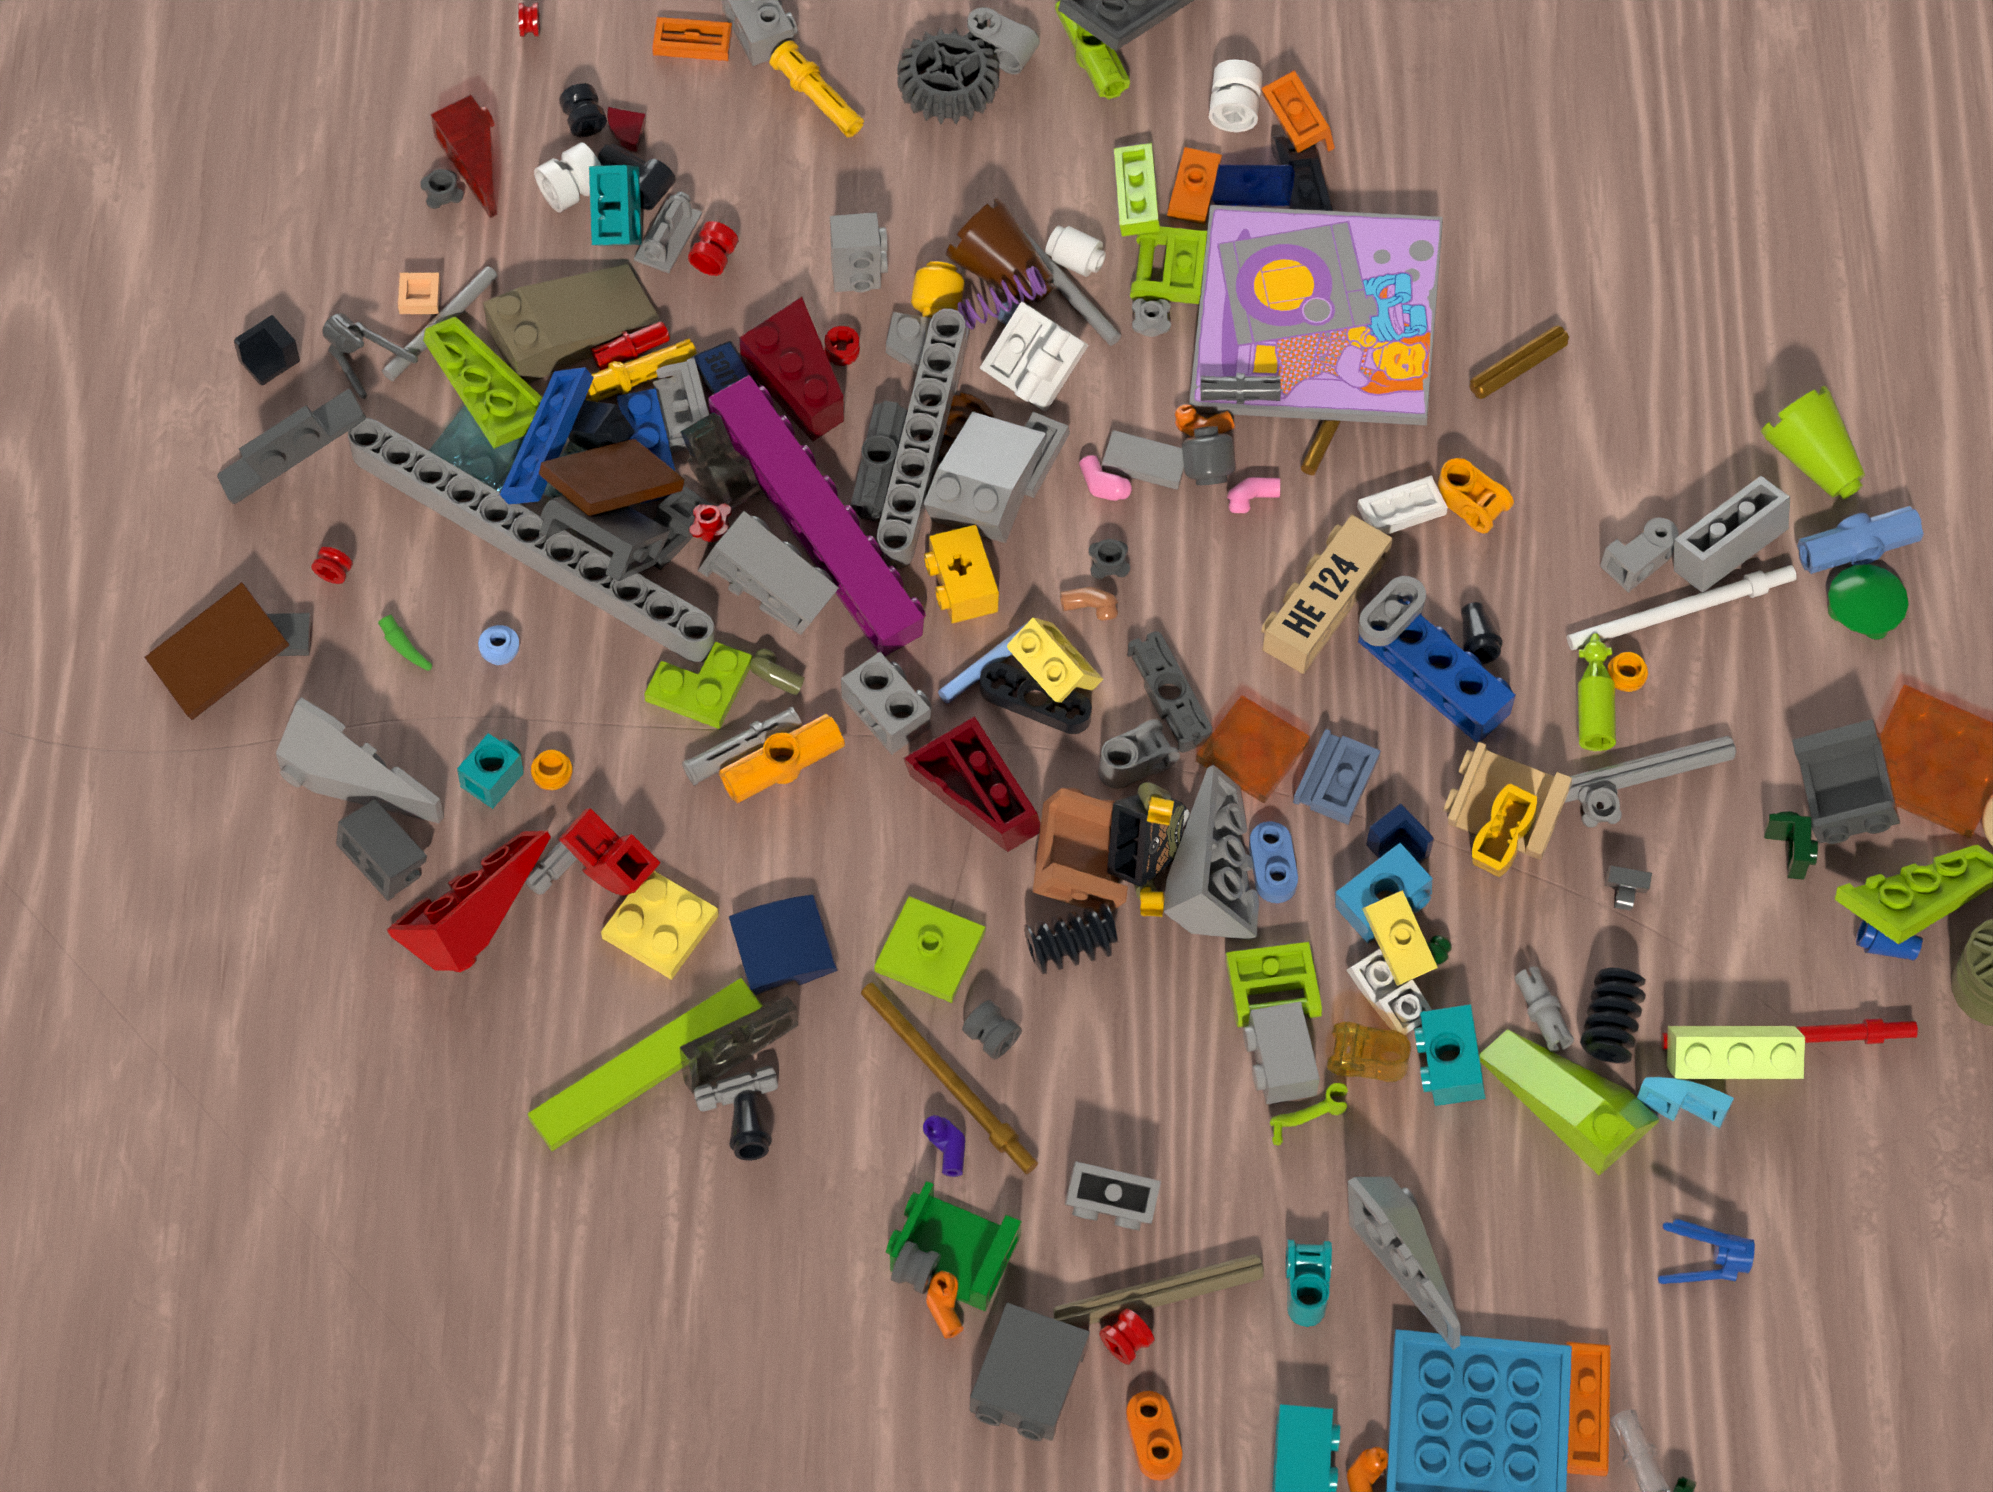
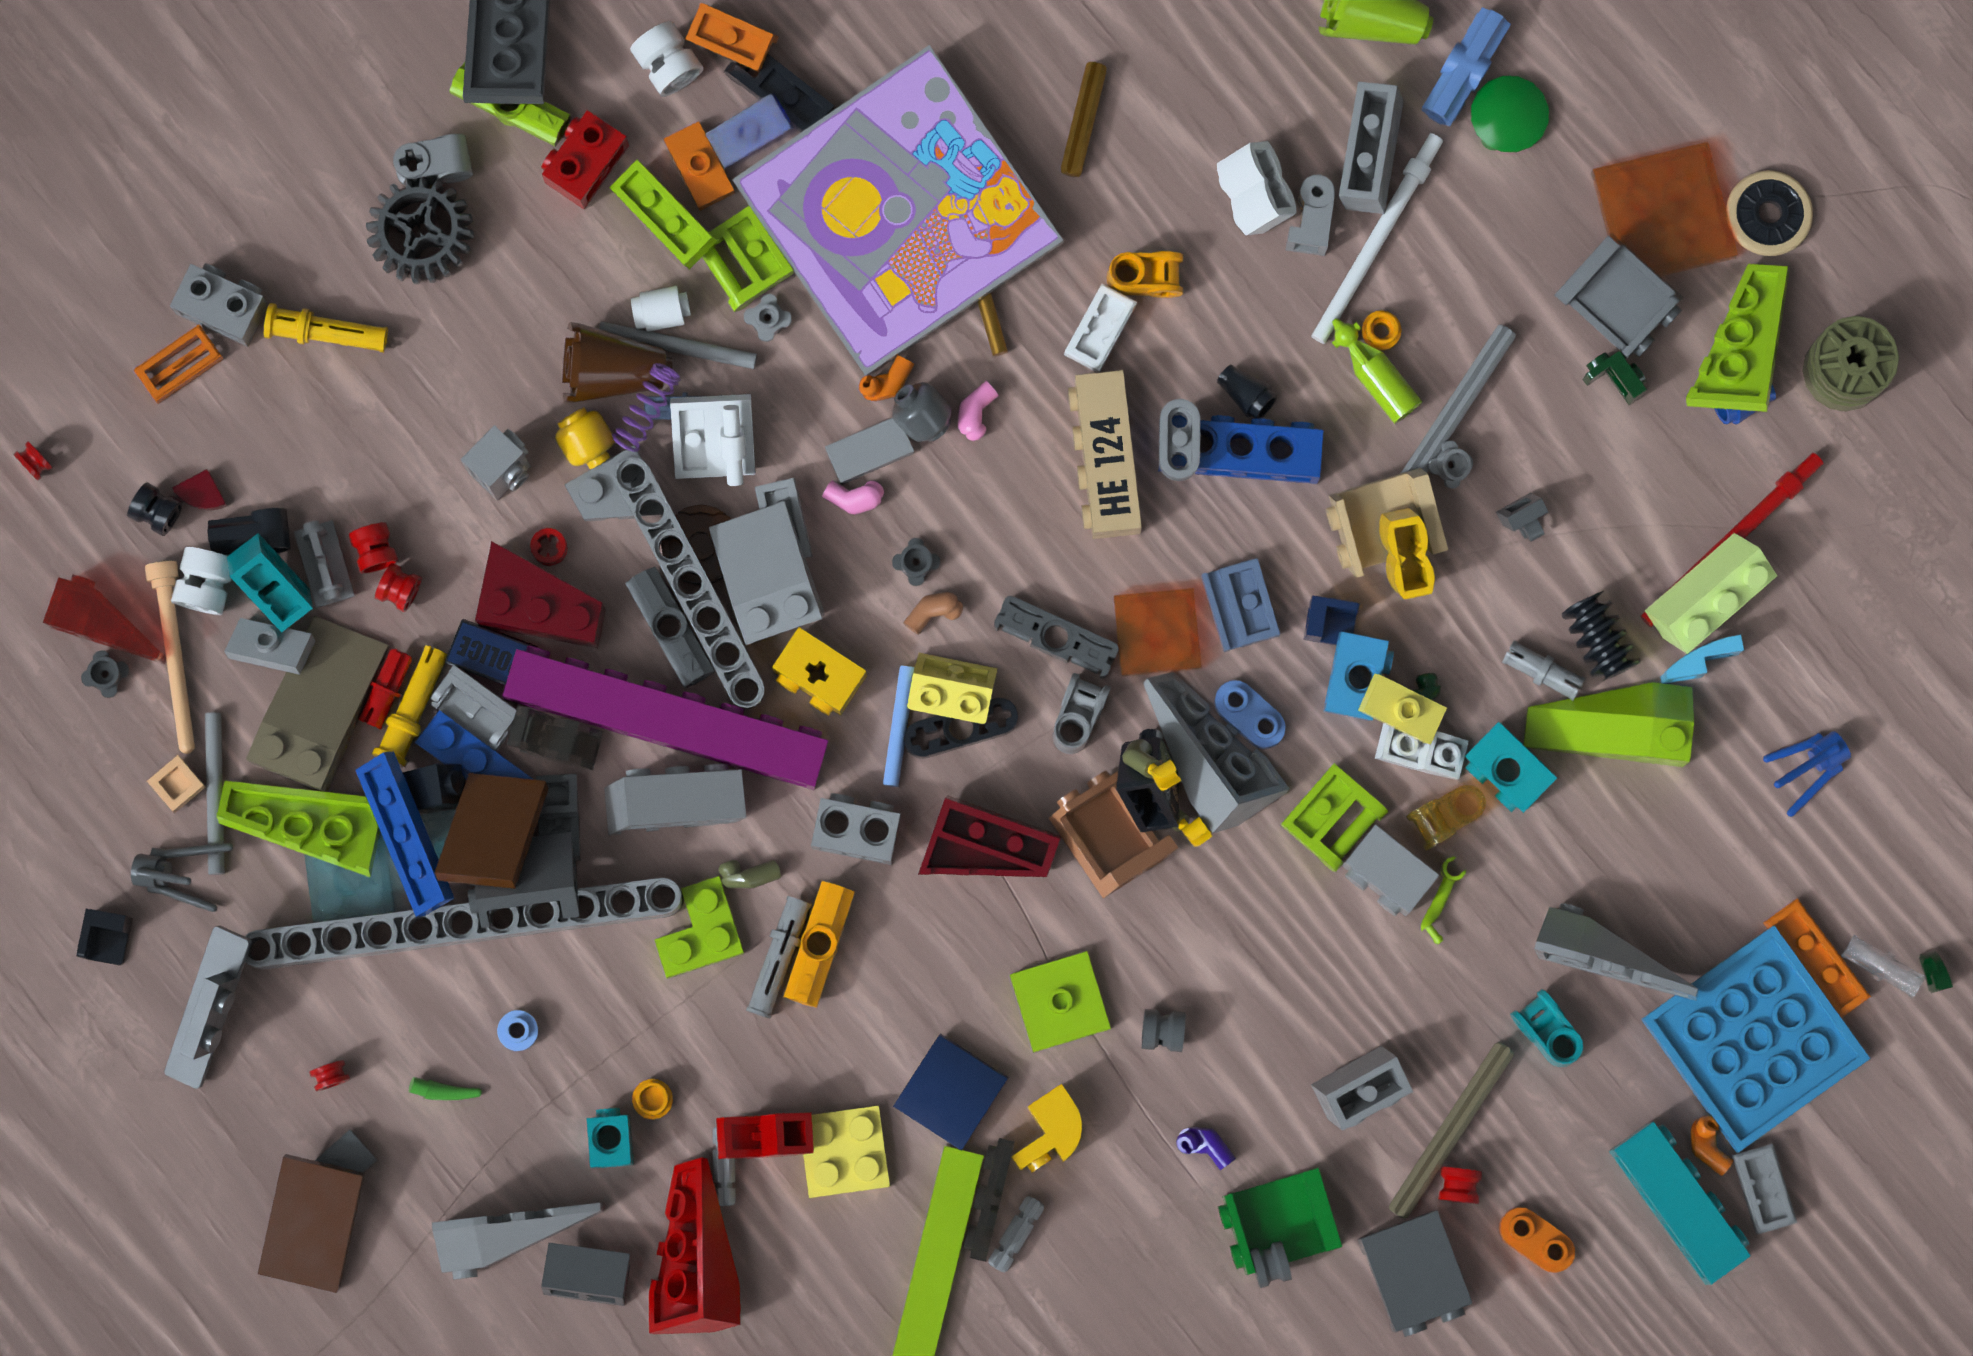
camera: 40 degrees left, 20 degrees up
(542, 152) = (163, 579): none -> light nougat piece
(575, 253) = (269, 647): none -> light grey plate
(705, 286) = (398, 587): none -> red wheel
(710, 522) = (601, 793): red plate -> none
(749, 1131) = (1055, 1258): black cone -> none
(839, 1039) = (1061, 1128): none -> yellow brick
(941, 1303) = (1306, 1270): orange arm -> none
(1001, 1135) = (1240, 1105): pearl gold bar -> none
(1071, 938) = (1160, 908): black piece -> none
(1113, 117) = (584, 158): none -> red brick
(1240, 388) = (898, 332): dark grey pin -> none
(1613, 496) = (1256, 188): none -> white brick

